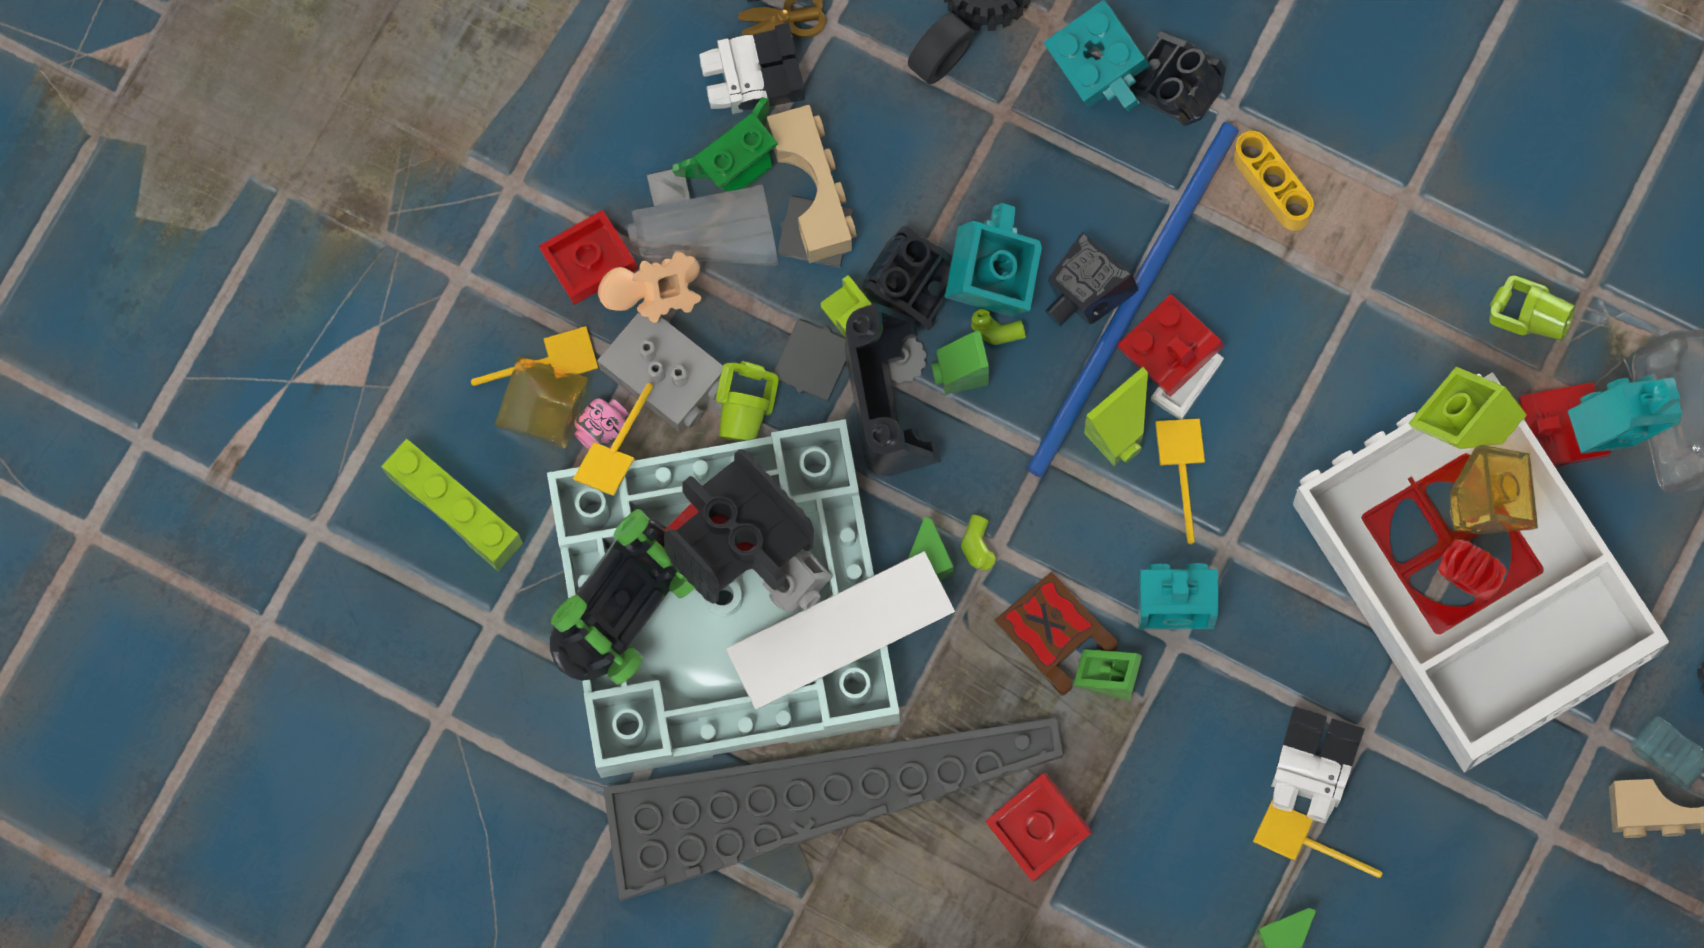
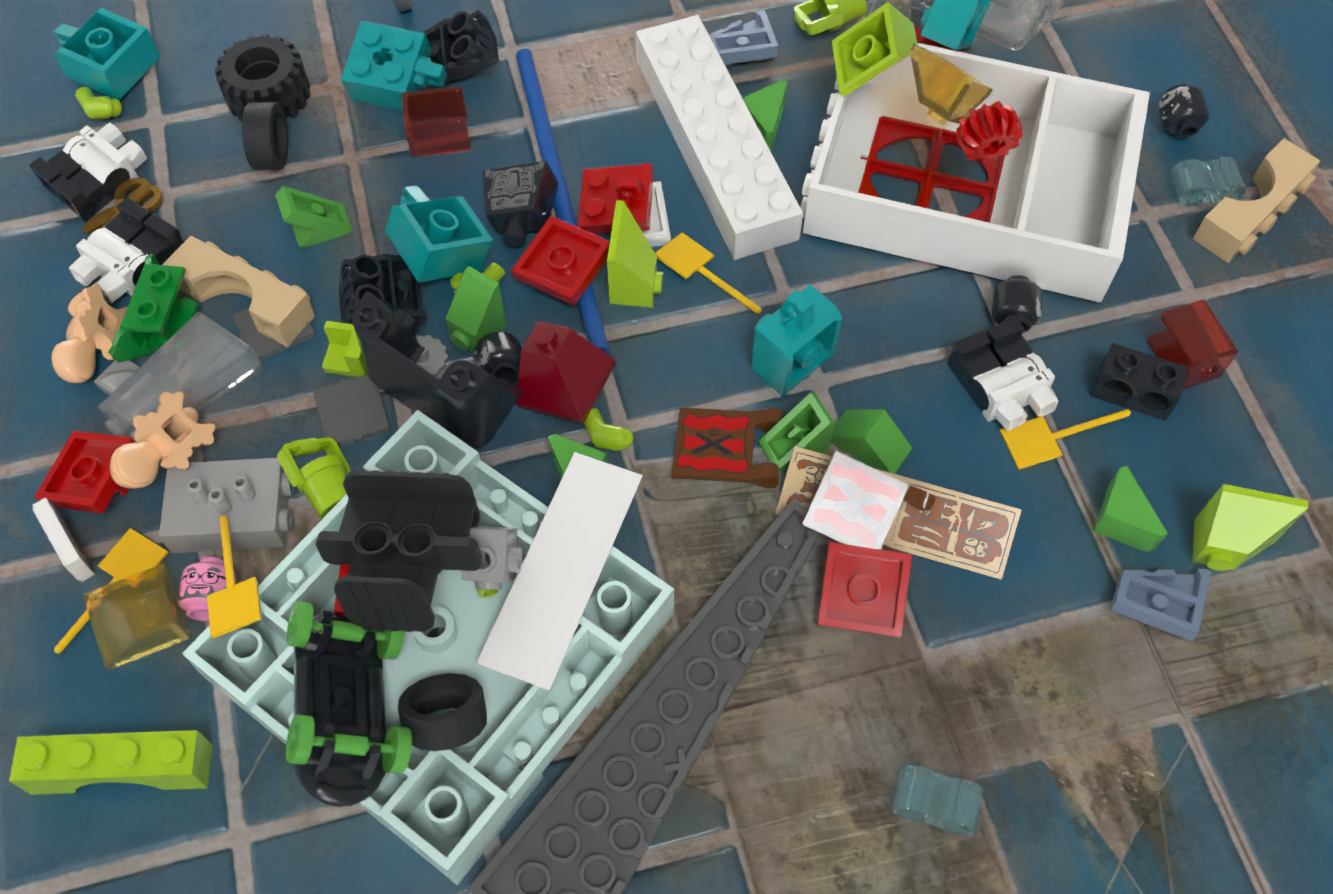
camera: 50 degrees left, 15 degrees down
(534, 299) = (62, 540): none -> white tile
(674, 125) = (90, 329): none -> light nougat animal
(685, 644) = (447, 729): none -> black tyre
(920, 158) = (312, 217): none -> bright green slope
(951, 416) = (499, 355): none -> black head
(984, 470) = (561, 373): none -> dark red slope
(1070, 371) = (562, 260): none -> red hinge
(1094, 766) = (860, 503): none -> flag
(1098, 125) = (436, 121): none -> clear red piece
(1124, 795) = (954, 531): none -> sticker
(1163, 723) = (871, 438): none -> bright green slope
(1271, 163) = (584, 59): yellow beam -> none
(1308, 352) = (718, 138): none -> white brick
(1369, 368) = (767, 109): none -> bright green slope
(1387, 717) = (1017, 299): none -> black head
(1408, 859) = (1139, 381): none -> black brick
(1429, 275) = (746, 42): none -> sand blue wing
(1482, 868) = (1194, 341): none -> clear red piece

